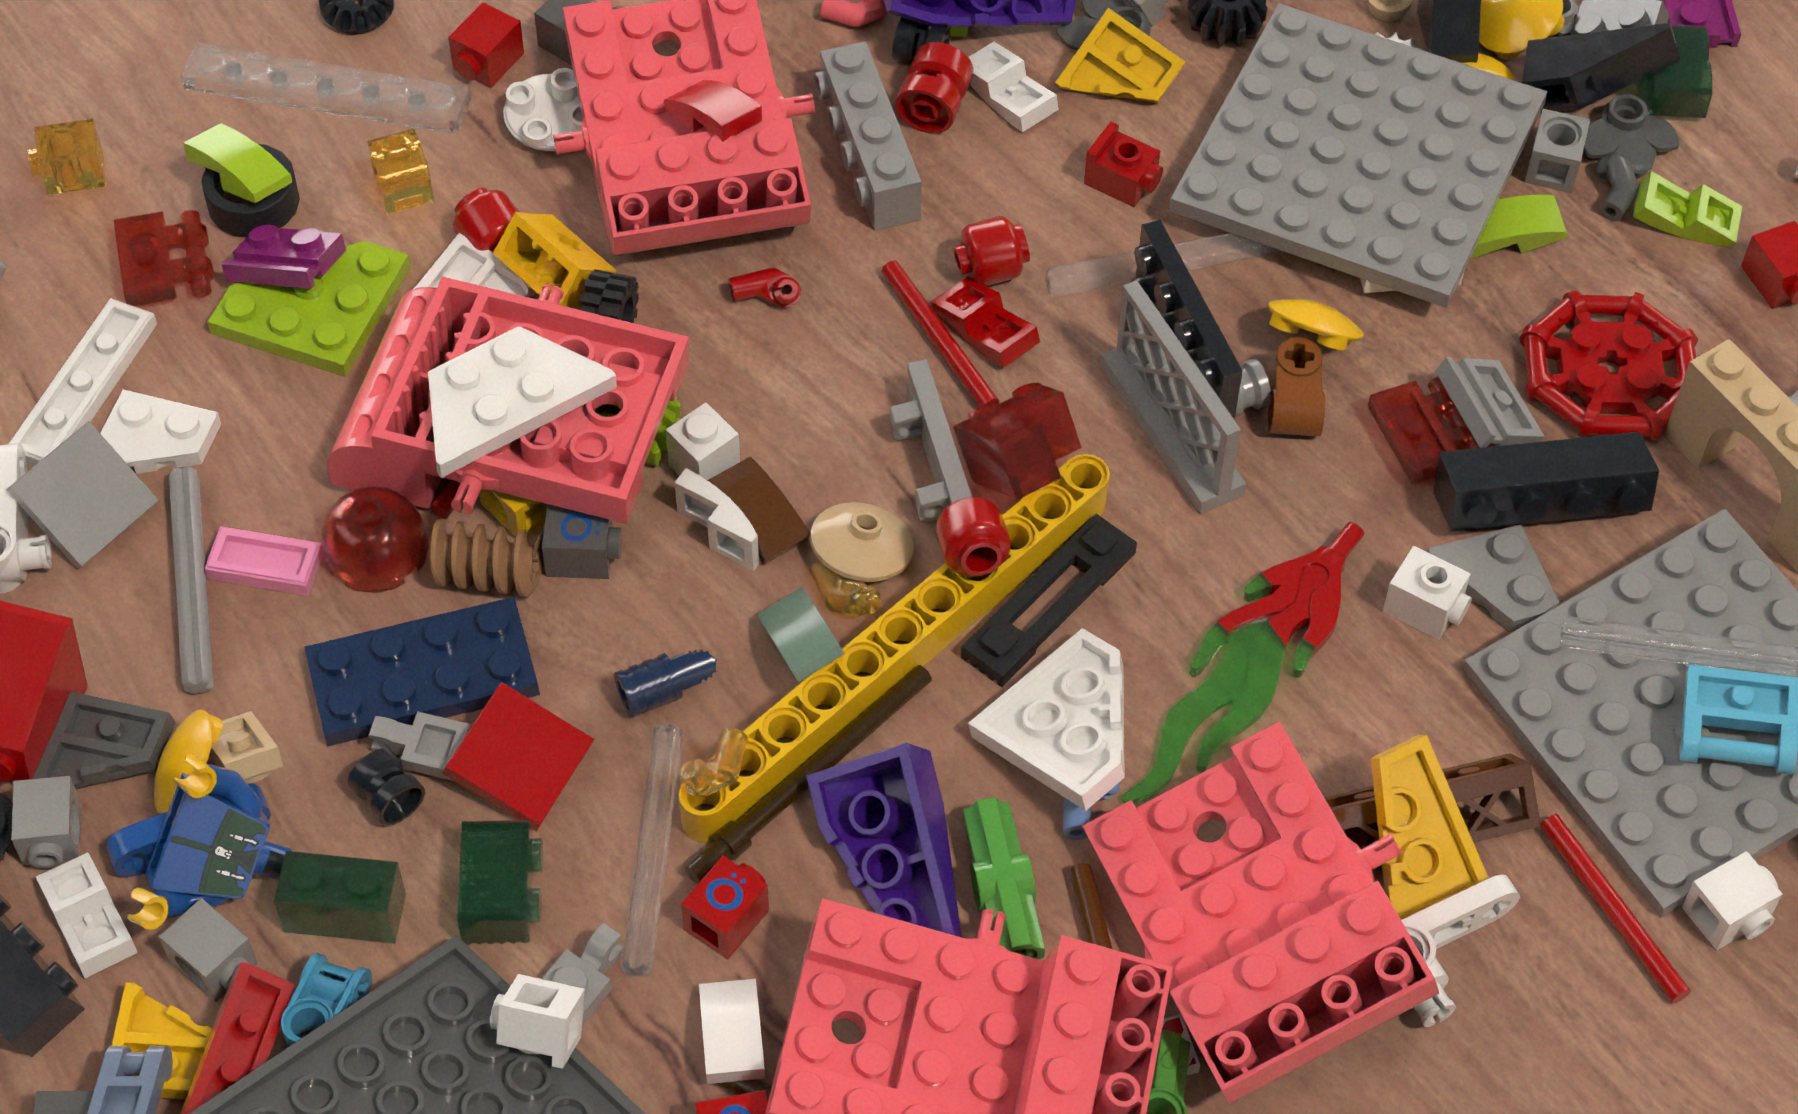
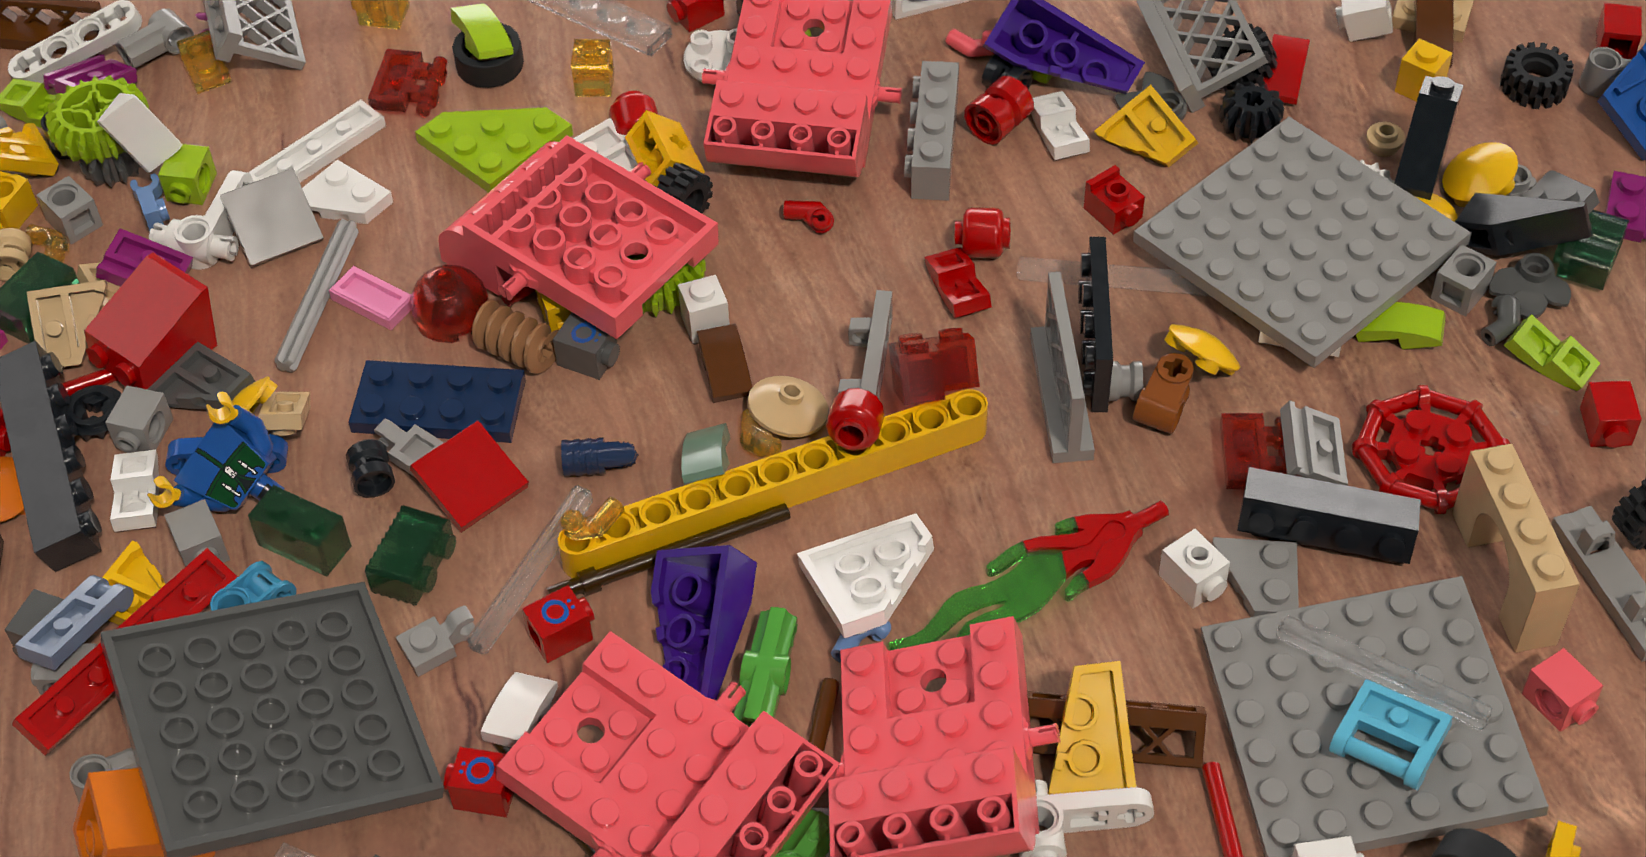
camera: 25 degrees right, 5 degrees down
(284, 256) = (485, 101): magenta plate -> none
(506, 393) = (566, 222): white wing -> none
(539, 1018) = (383, 652): white brick -> none
(716, 107) = (816, 76): slope -> none
(727, 526) = (690, 359): white slope -> none
(938, 334) = (918, 279): red bar -> none
(1005, 649) = (854, 512): black container -> none

